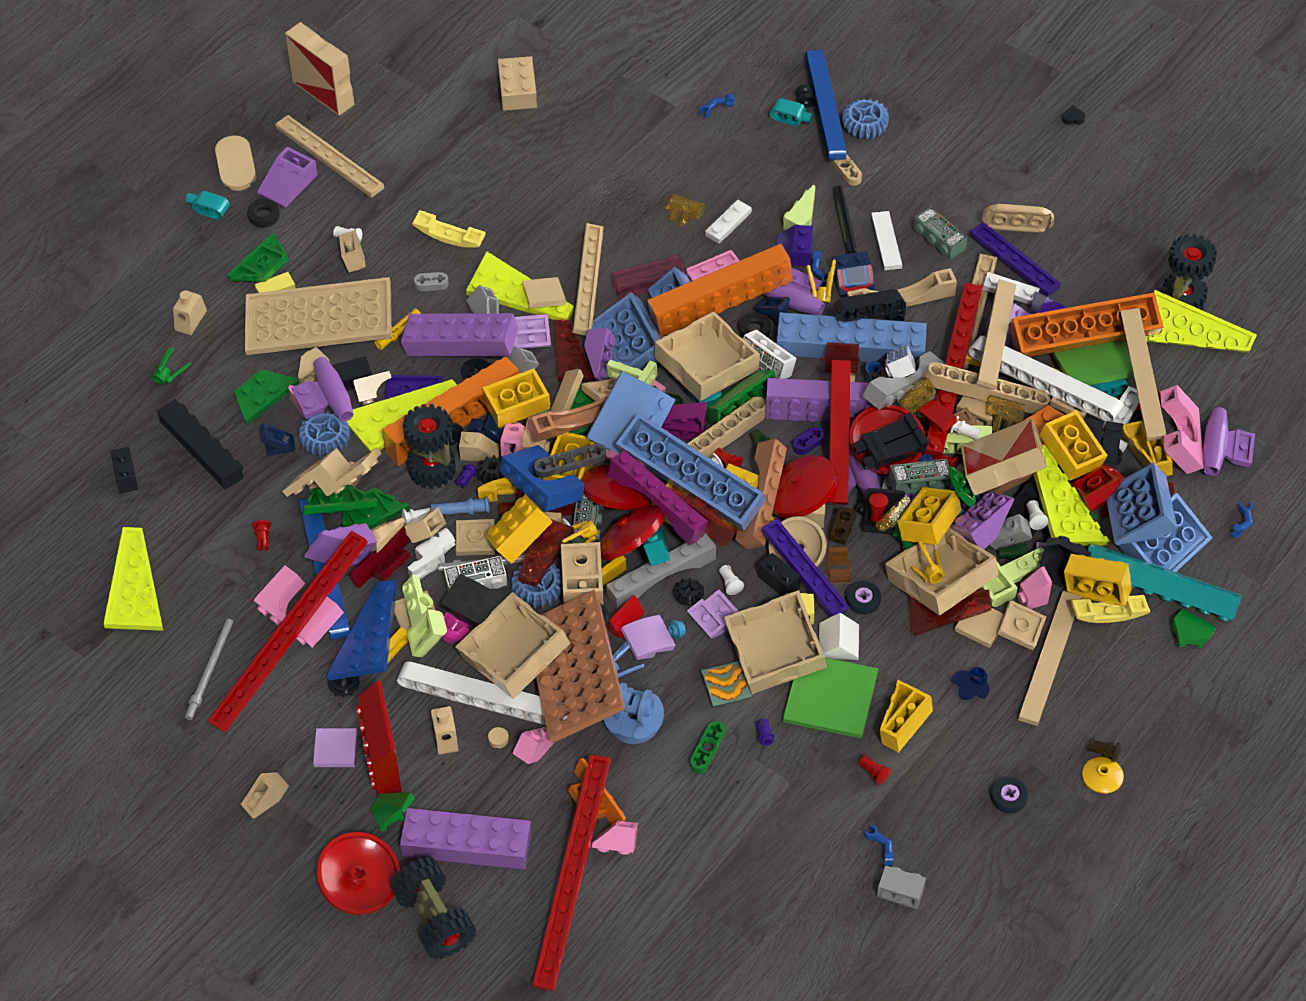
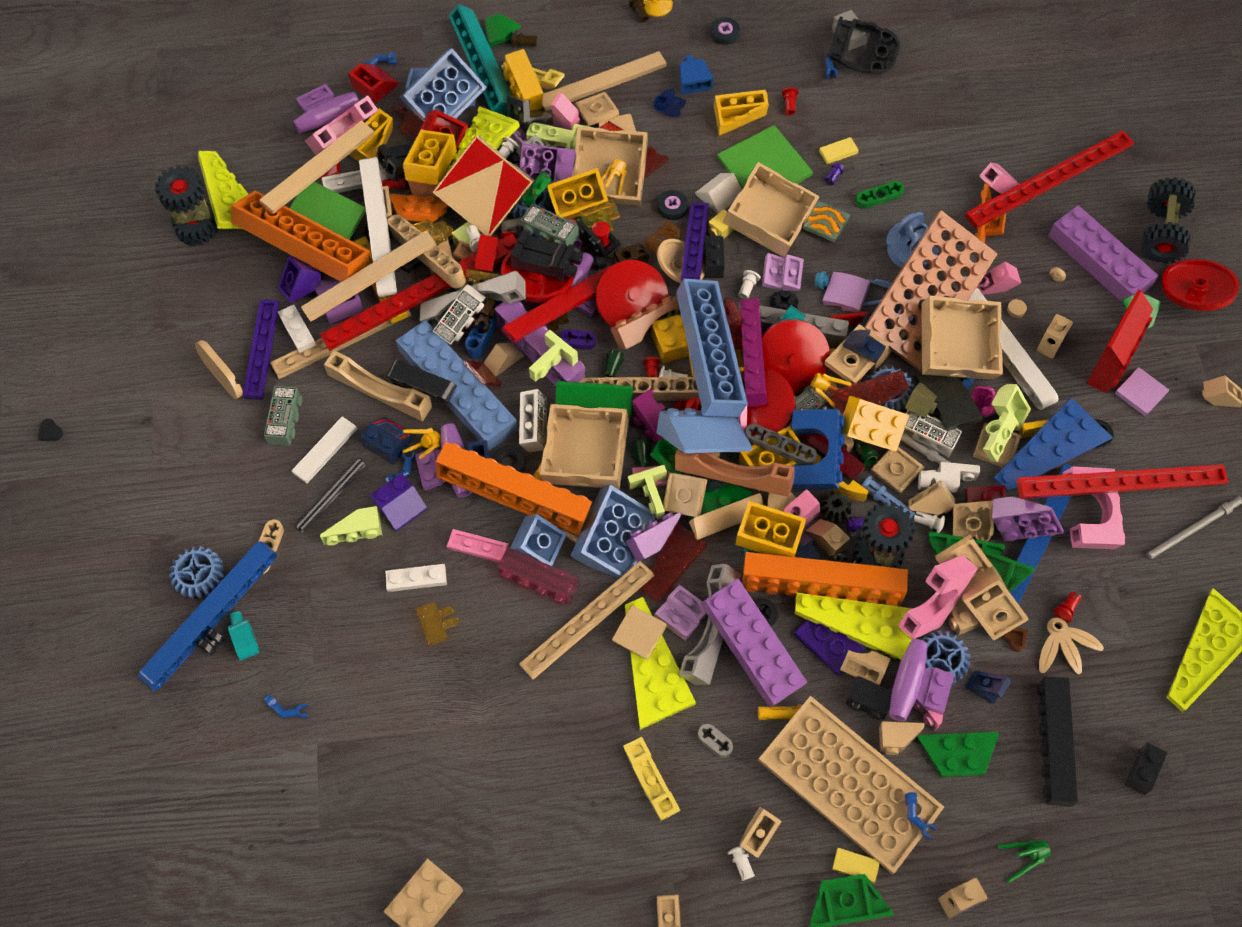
camera: 135 degrees left, 10 degrees up
(244, 328) = (911, 800): none -> blue arm
(247, 513) = (1063, 637): none -> tan plant
(278, 487) = (1016, 639): none -> reddish brown tile
(356, 435) = (949, 582): none -> bright pink arch
(490, 793) = (1053, 274): none -> tan piece
(499, 579) = (922, 401): none -> olive slope
(583, 571) = (863, 345): none -> dark blue slope
(784, 760) = (838, 150): none -> light yellow tile
(793, 384) = (558, 350): none -> yellowish green bracket
(847, 878) = (880, 50): none -> black slope
(981, 722) = (694, 76): none -> blue torso
(1161, 632) = (523, 40): none -> dark brown pin
(1219, 493) = (371, 81): none -> red slope

